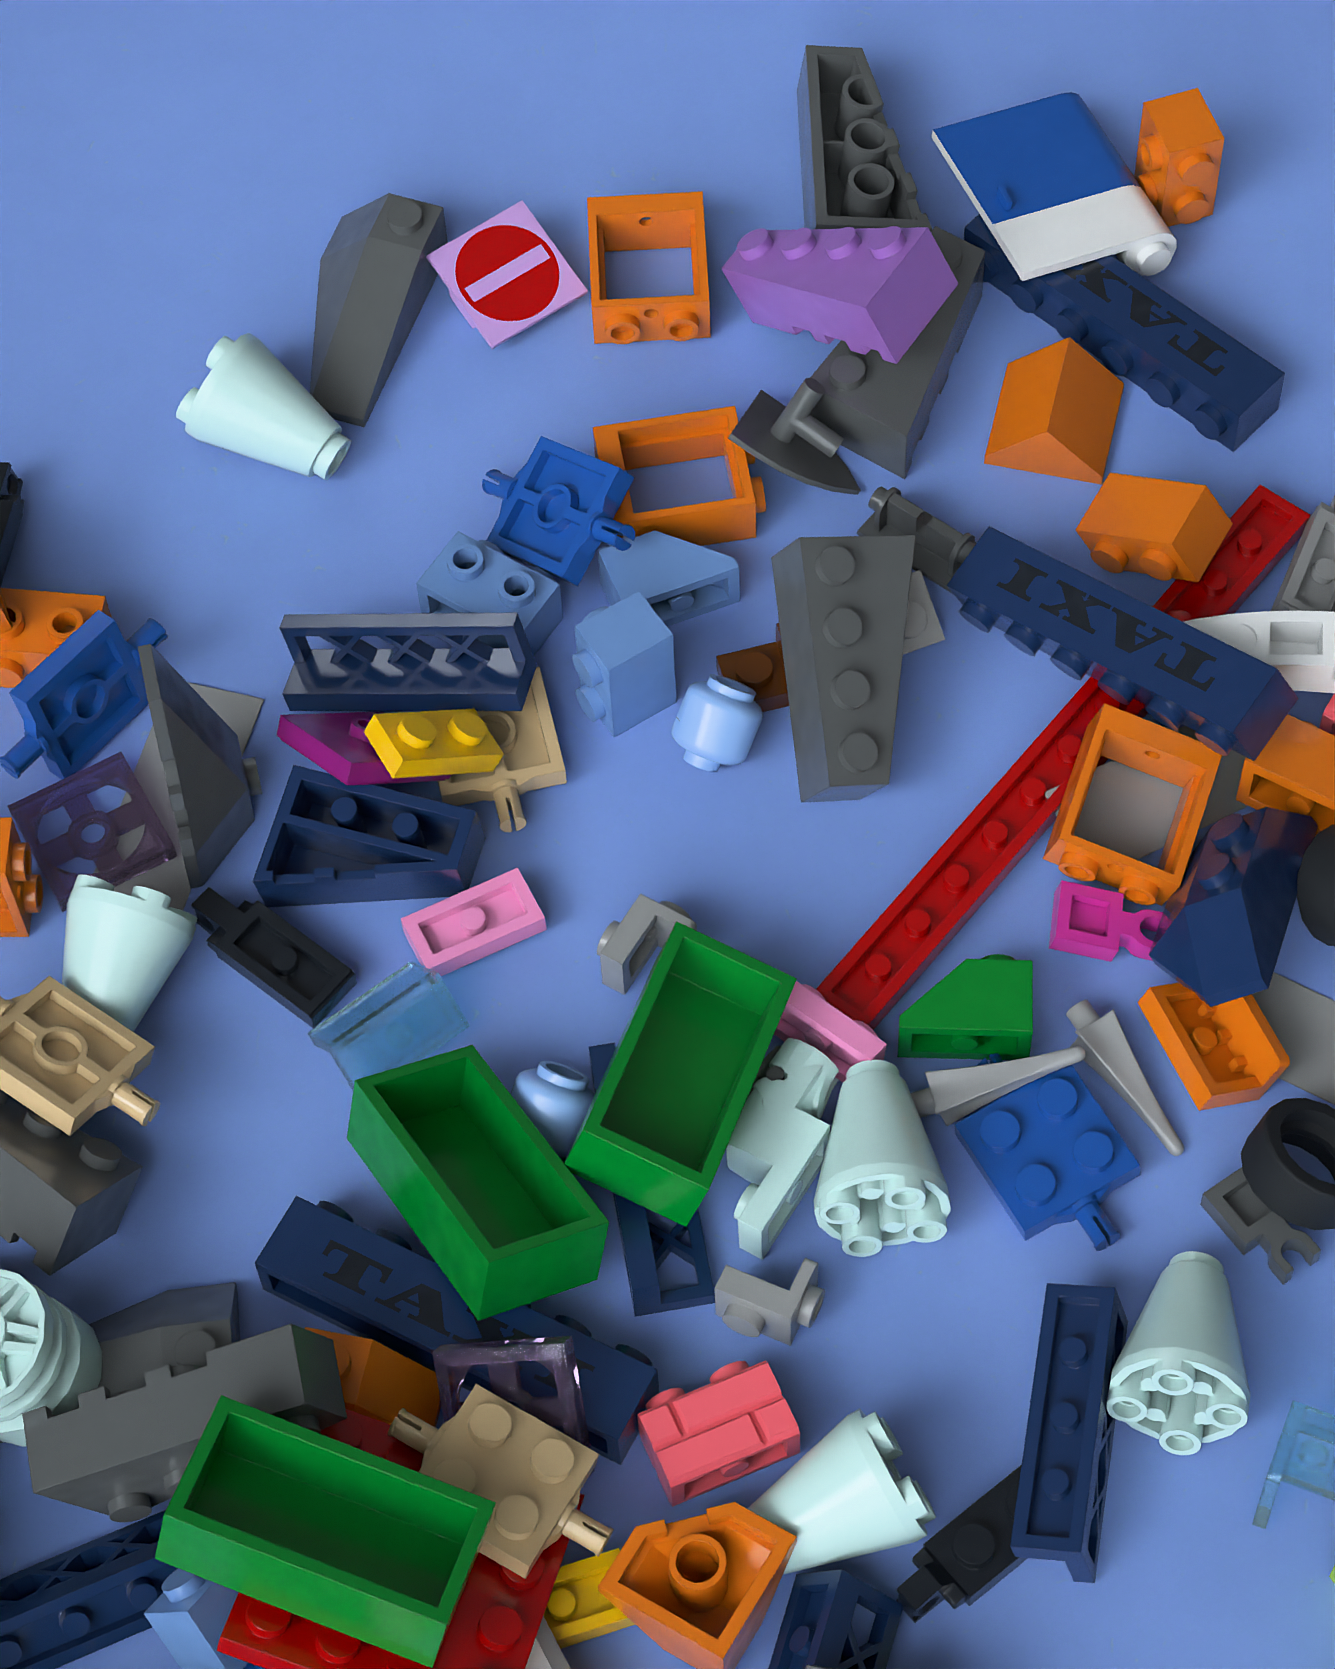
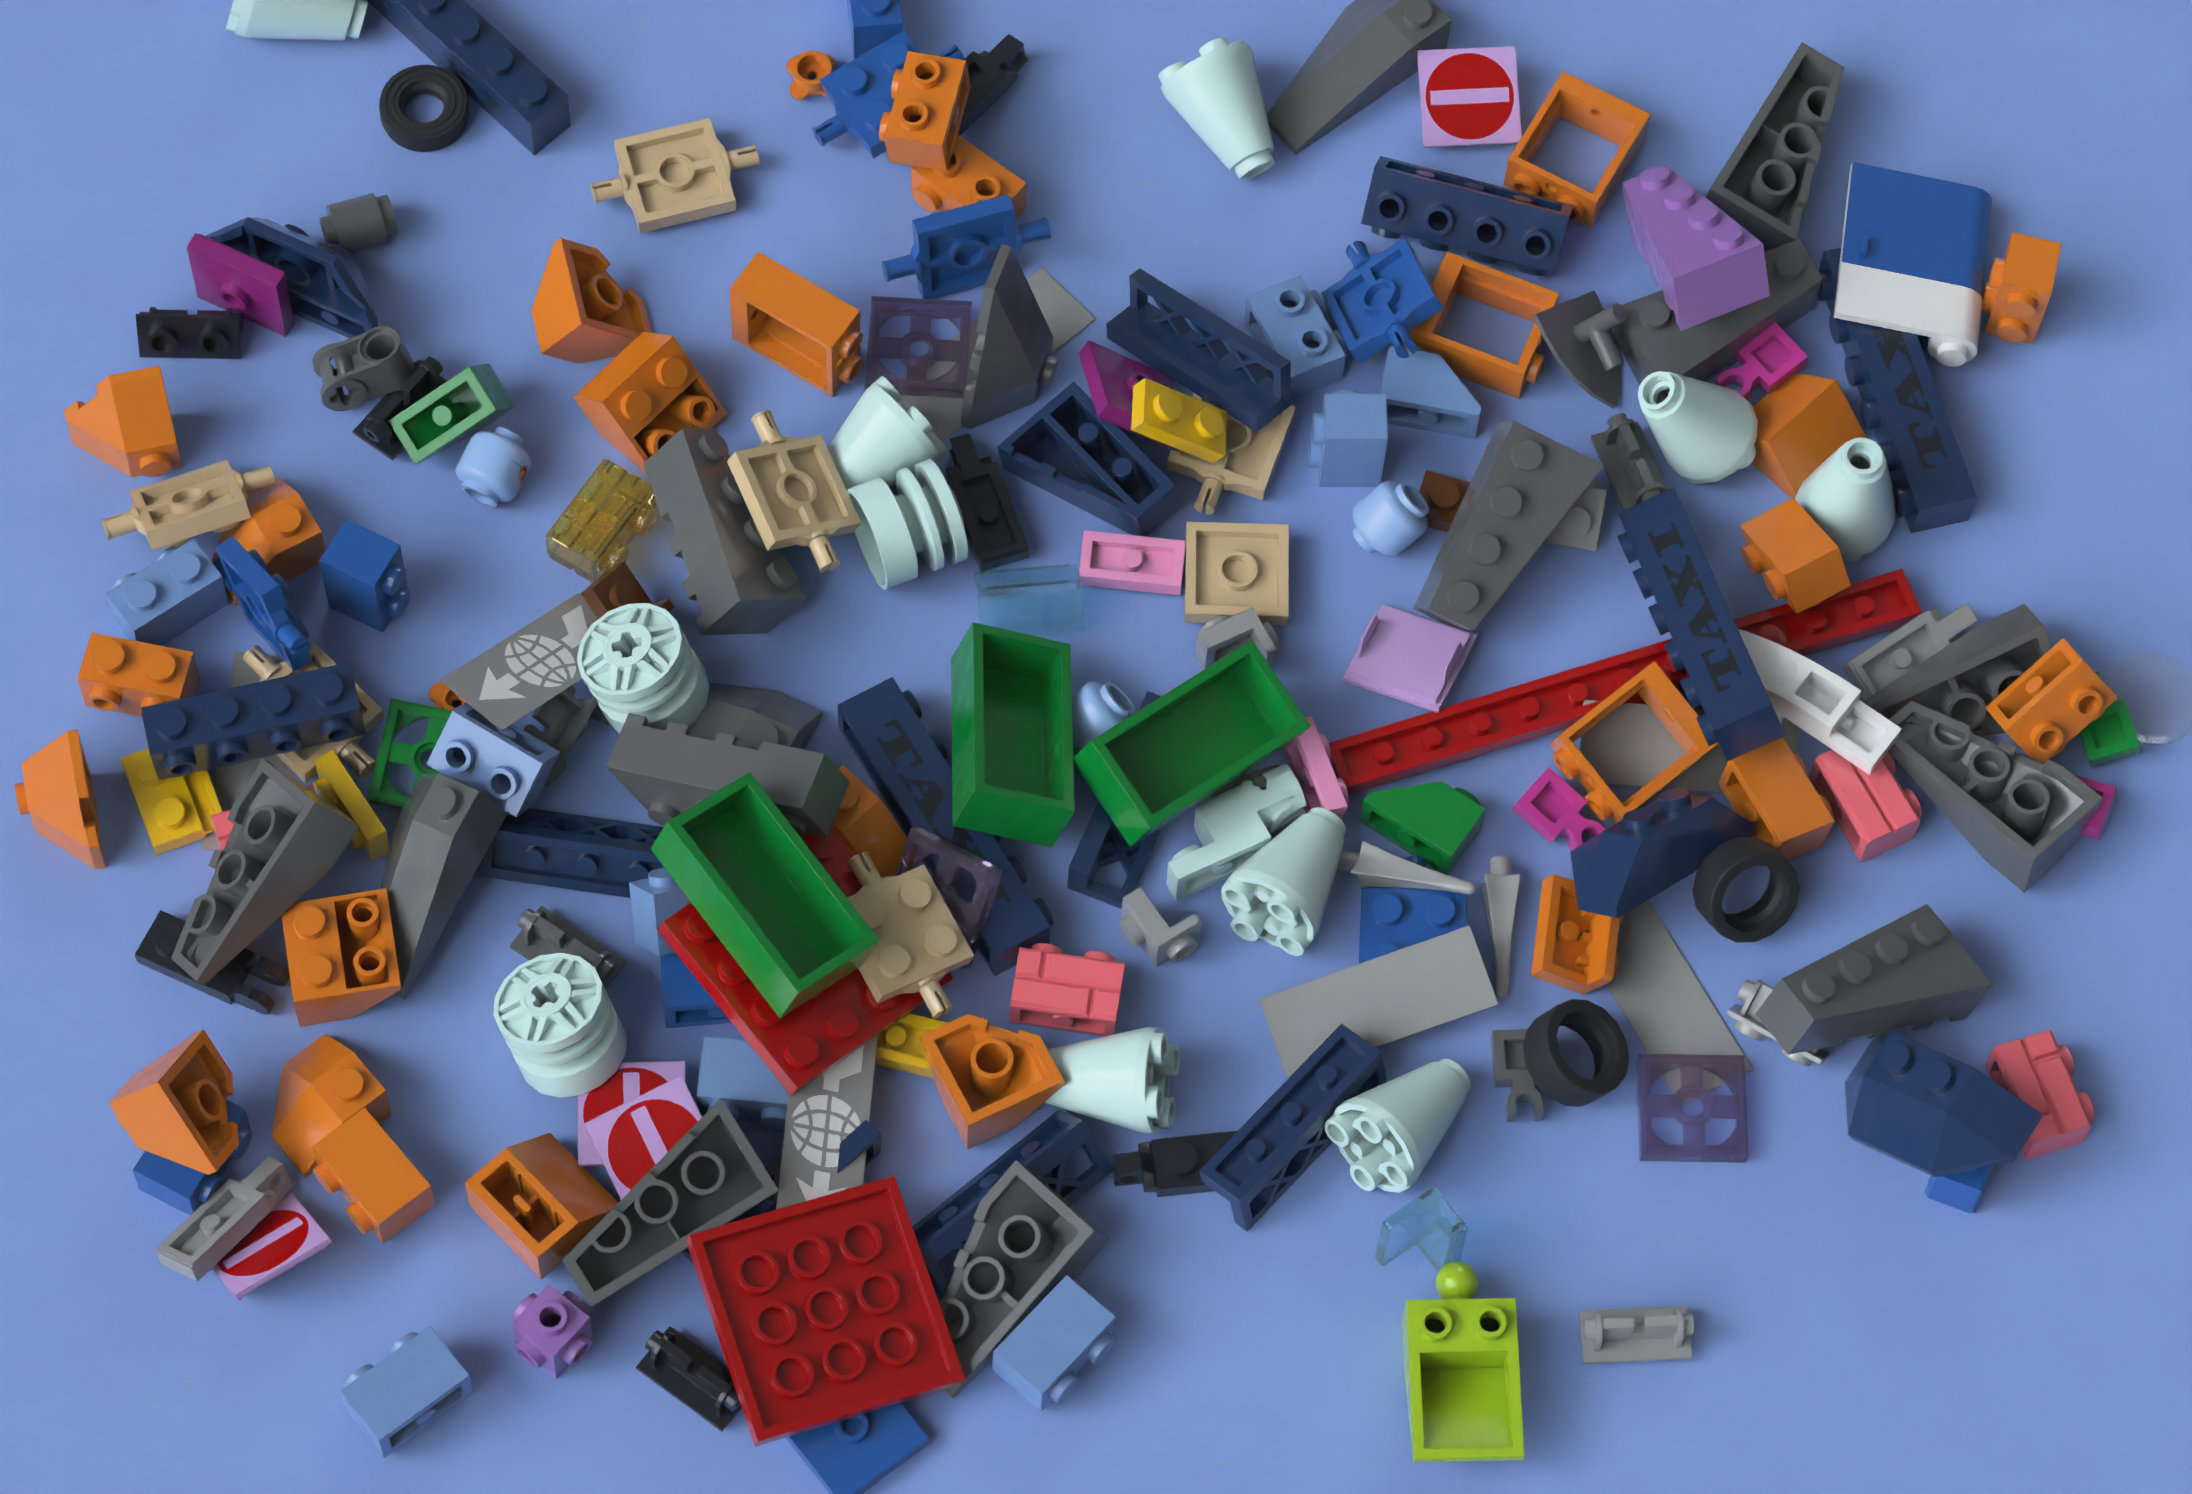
camera: 25 degrees right, 5 degrees up
(208, 1019) = (917, 520): none -> light aqua wheel
(586, 385) = (1466, 215): none -> dark blue brick
(591, 869) = (1236, 569): none -> tan plate
(834, 855) = (1409, 658): none -> lavender piece
(970, 456) = (1699, 425): none -> light aqua cone
(978, 365) = (1765, 361): none -> dark pink plate
(1060, 1233) = (1382, 997): none -> light grey sticker
(1162, 430) = (1851, 498): none -> light aqua cone

